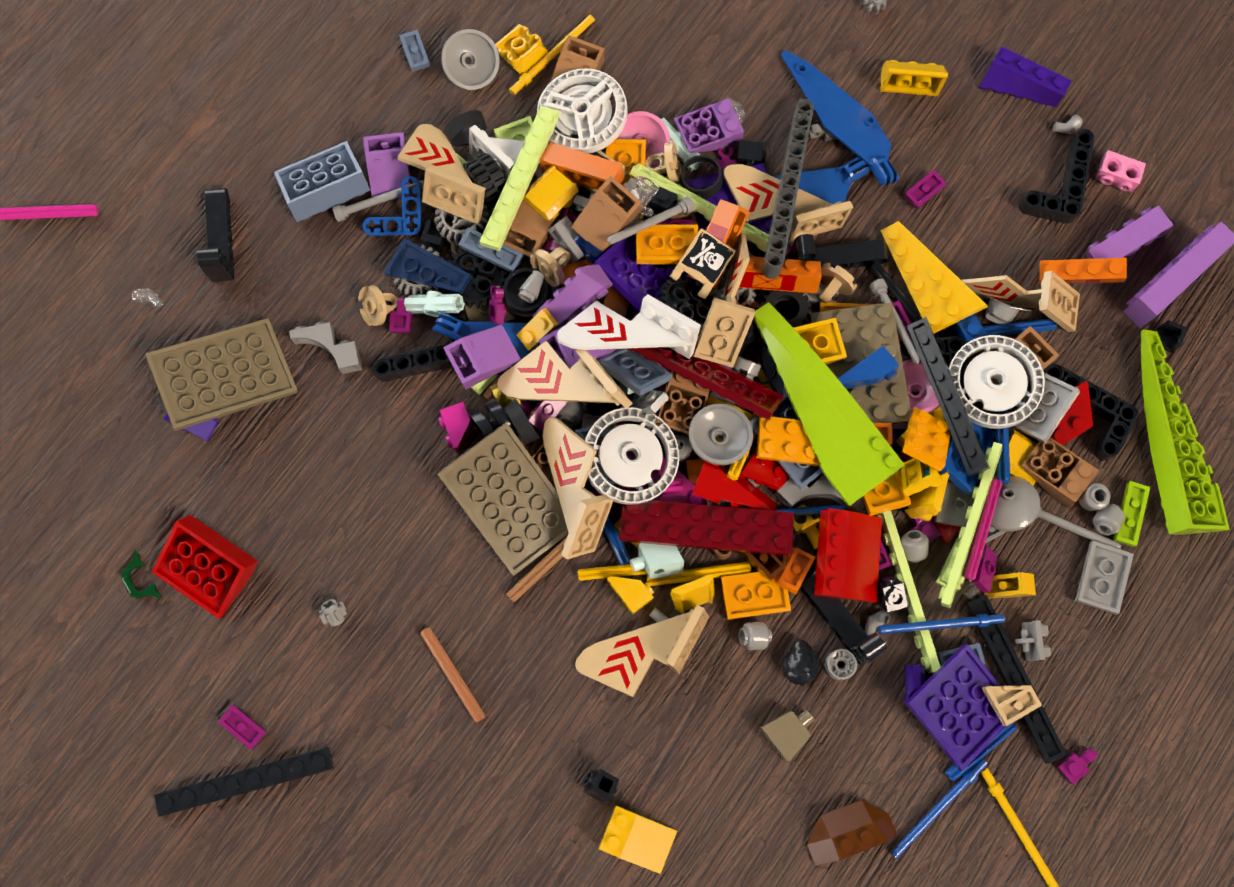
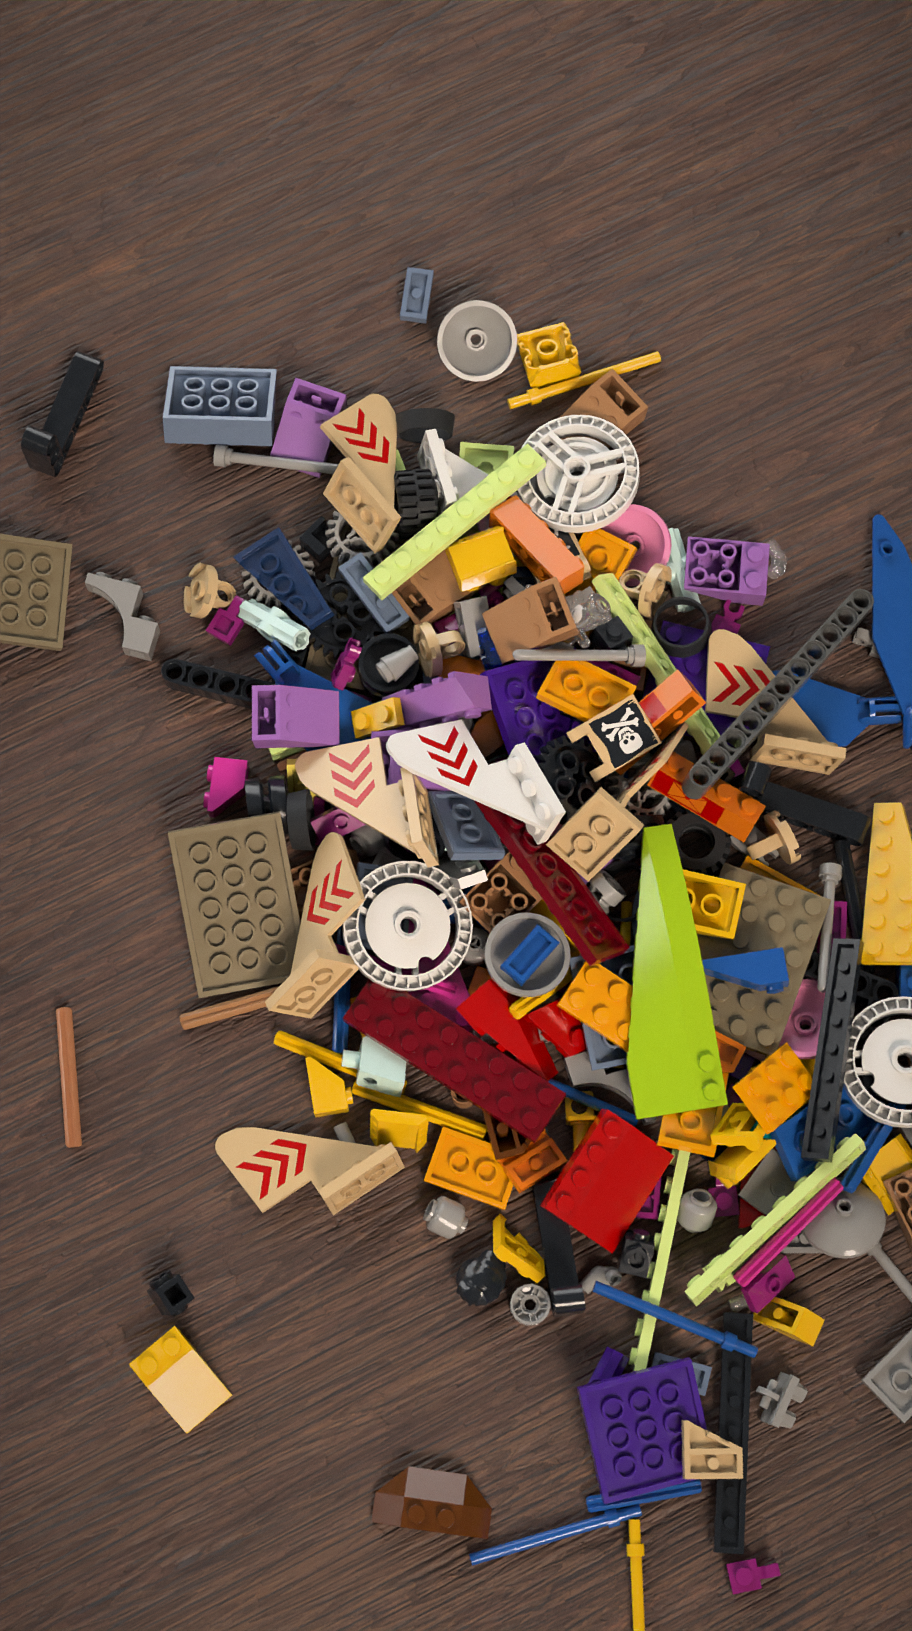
camera: 30 degrees right, 0 degrees up
(401, 221) = (292, 503): blue beam -> none
(723, 433) = (529, 955): none -> blue tile
(750, 153) = (761, 627): black brick -> none
(788, 733) = (422, 1350): dark tan torso -> none
(814, 634) = (516, 1251): none -> yellow wing

